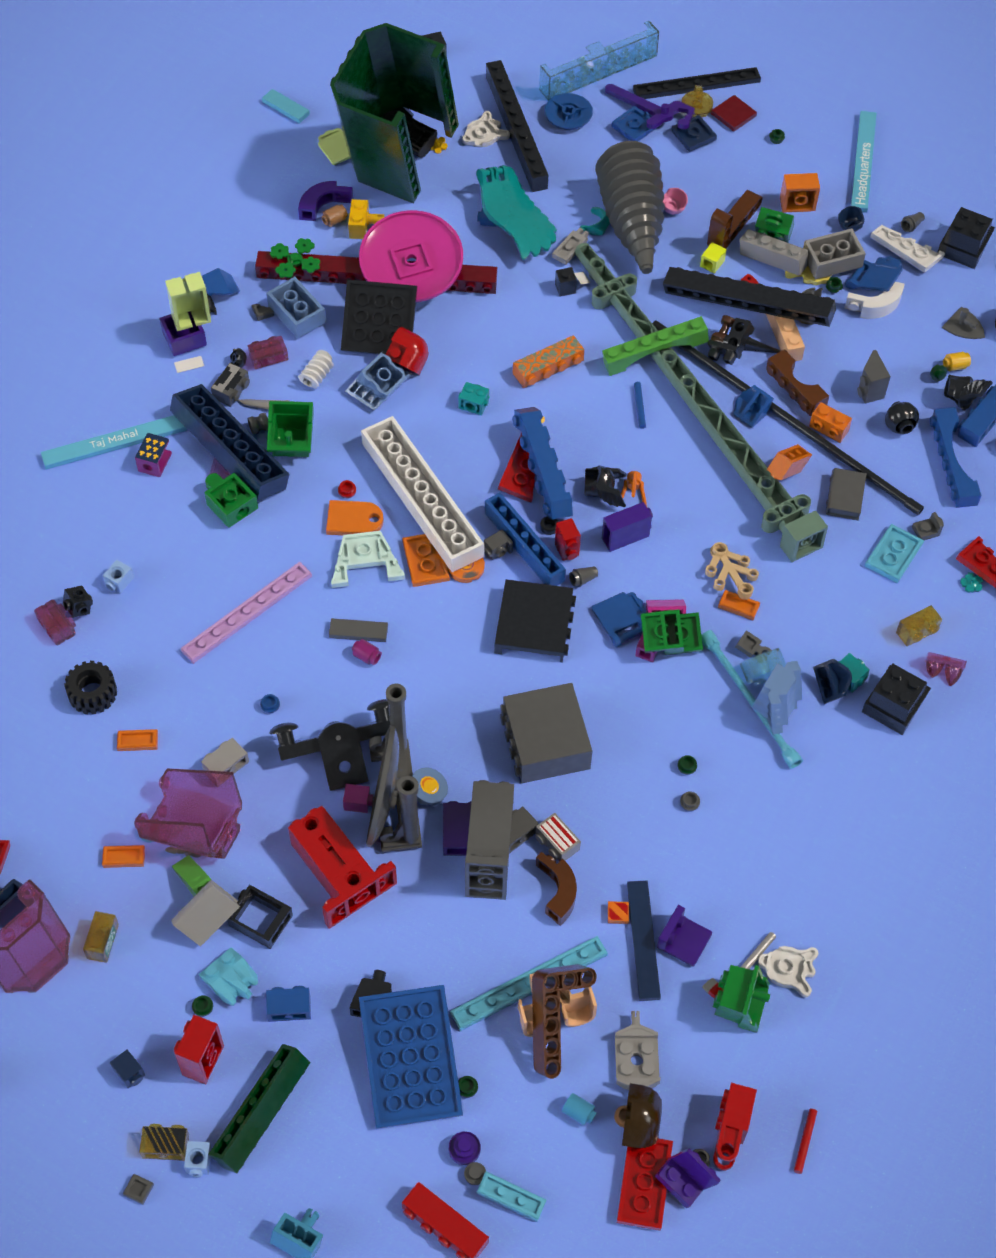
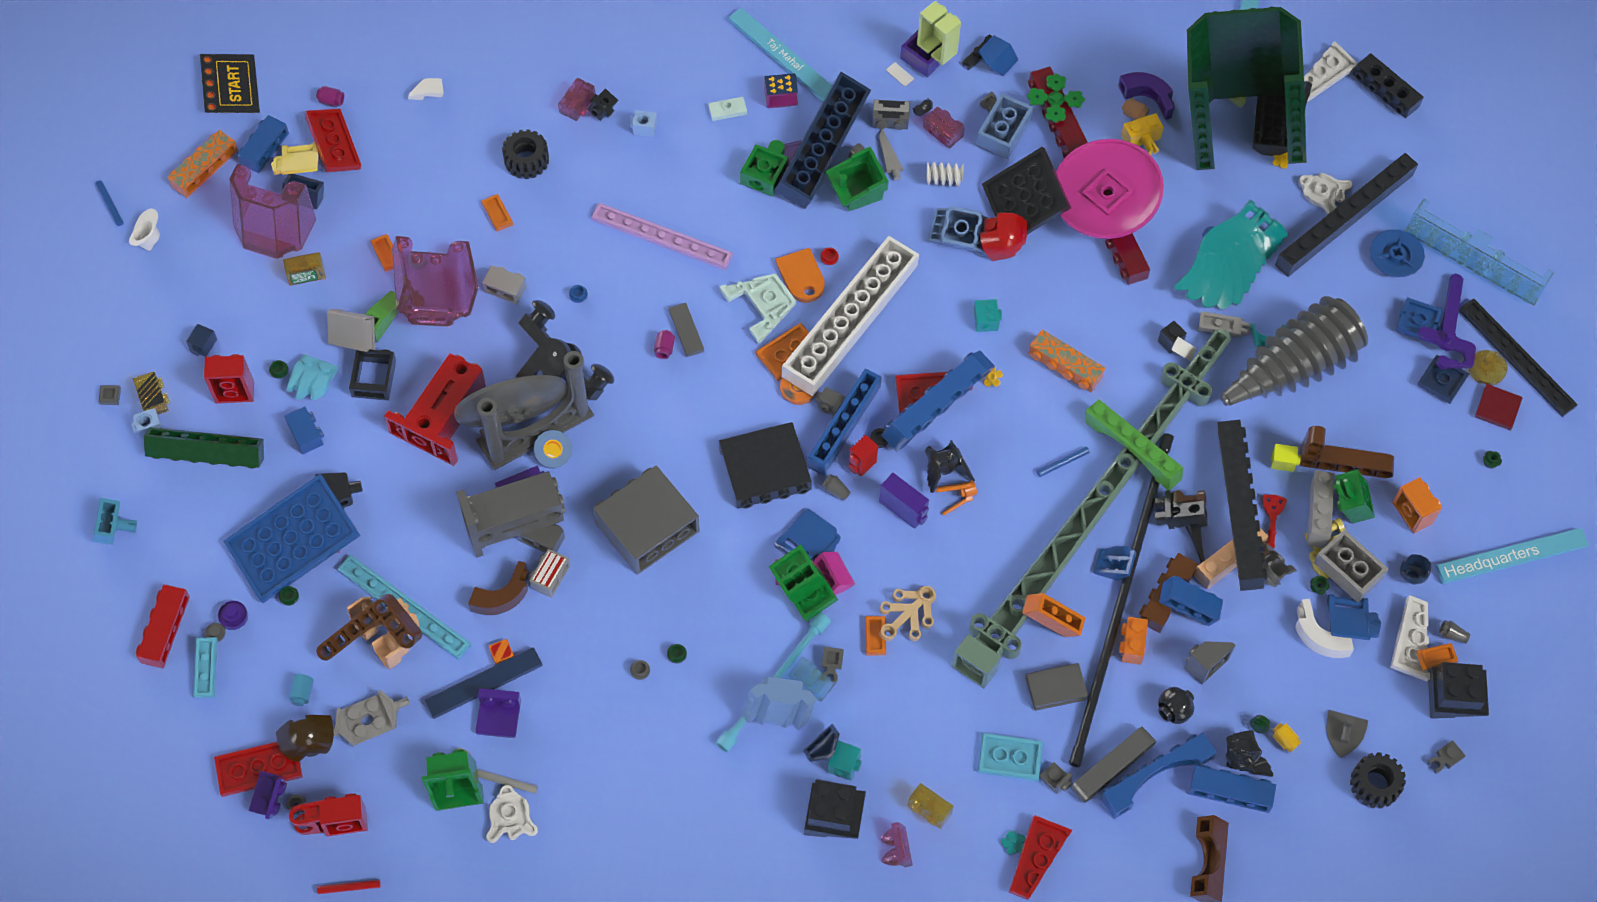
camera: 65 degrees right, 5 degrees up
(142, 506) = (727, 108): none -> light aqua plate
(675, 201) = (1335, 393): bright pink hair -> none
(816, 367) = (1191, 600): none -> blue brick
(929, 239) = (1436, 655): none -> orange tile
(933, 483) = (1113, 764): none -> dark grey beam

